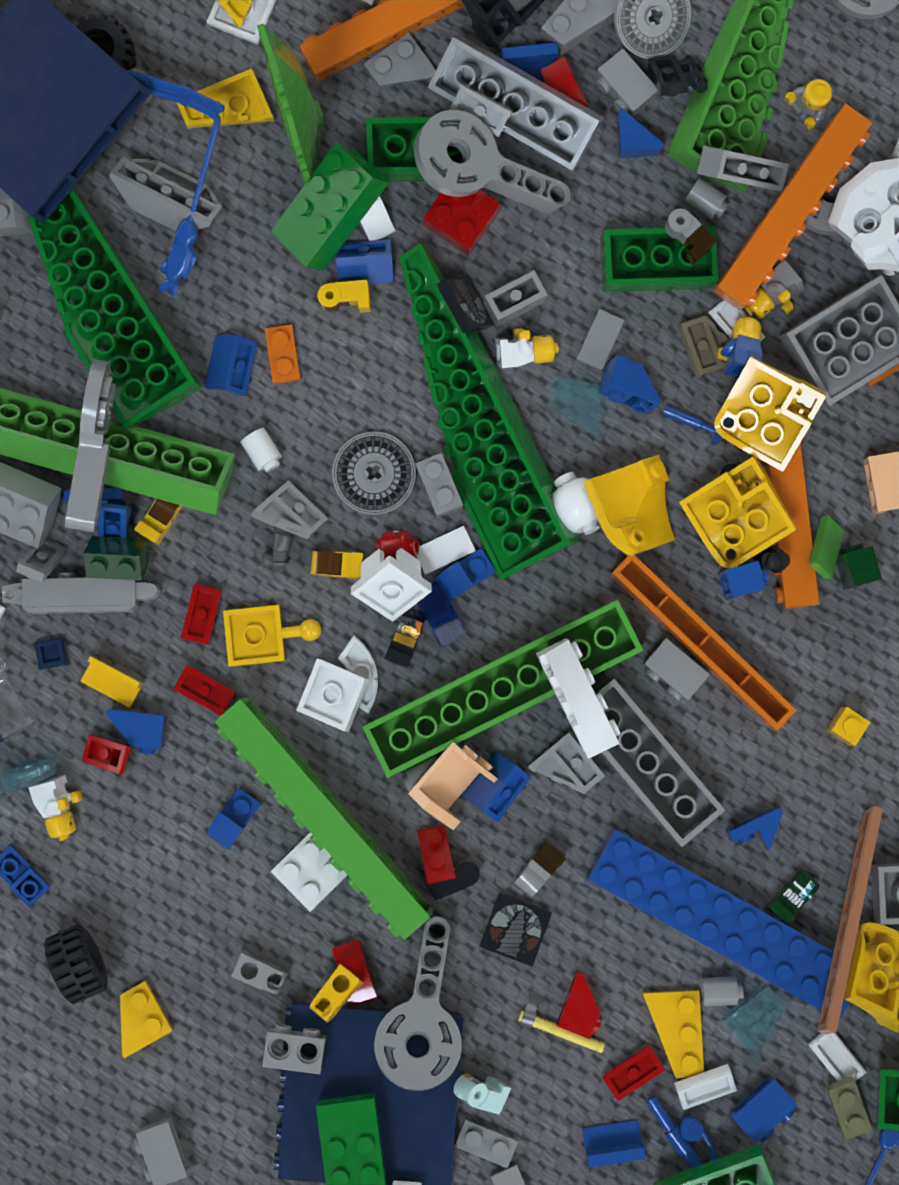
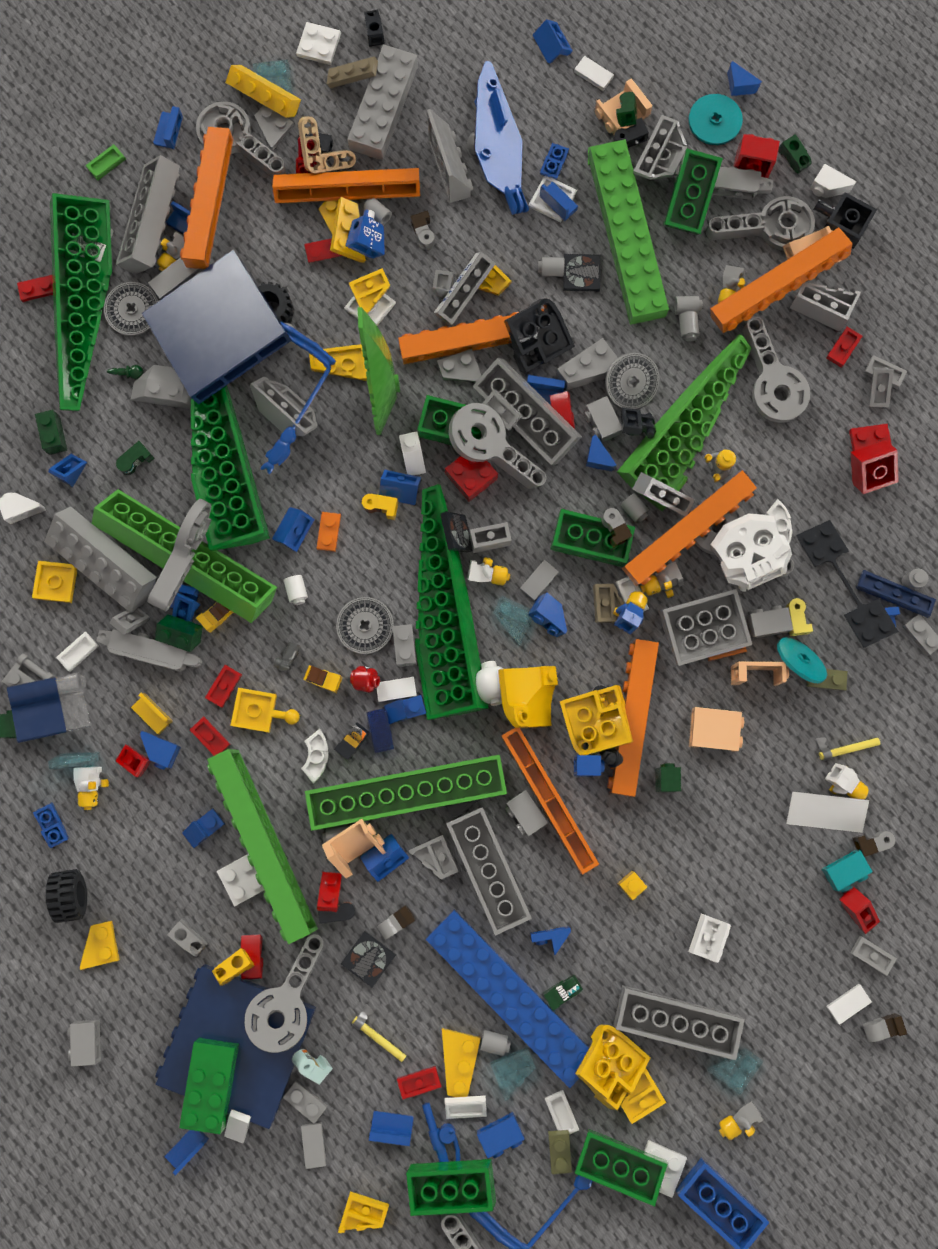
camera: 20 degrees right, 5 degrees down
(51, 653) = (118, 683): dark blue tile -> none
(290, 512) = (302, 635): light grey wing -> none
(294, 1058) = (191, 1004): light grey brick -> none
(329, 207) = (385, 444): green brick -> none
(332, 695) = (293, 764): white plate -> none
(391, 584) = (352, 702): white panel -> none
(577, 697) = (453, 814): white wedge -> none
(579, 1009) = (395, 1027): red slope -> none
(693, 421) = (588, 653): blue piece -> none
(768, 412) = (636, 658): yellow slope -> none
(826, 547) = (650, 759): bright green tile -> none
(849, 921) = (594, 1021): nougat tile -> none

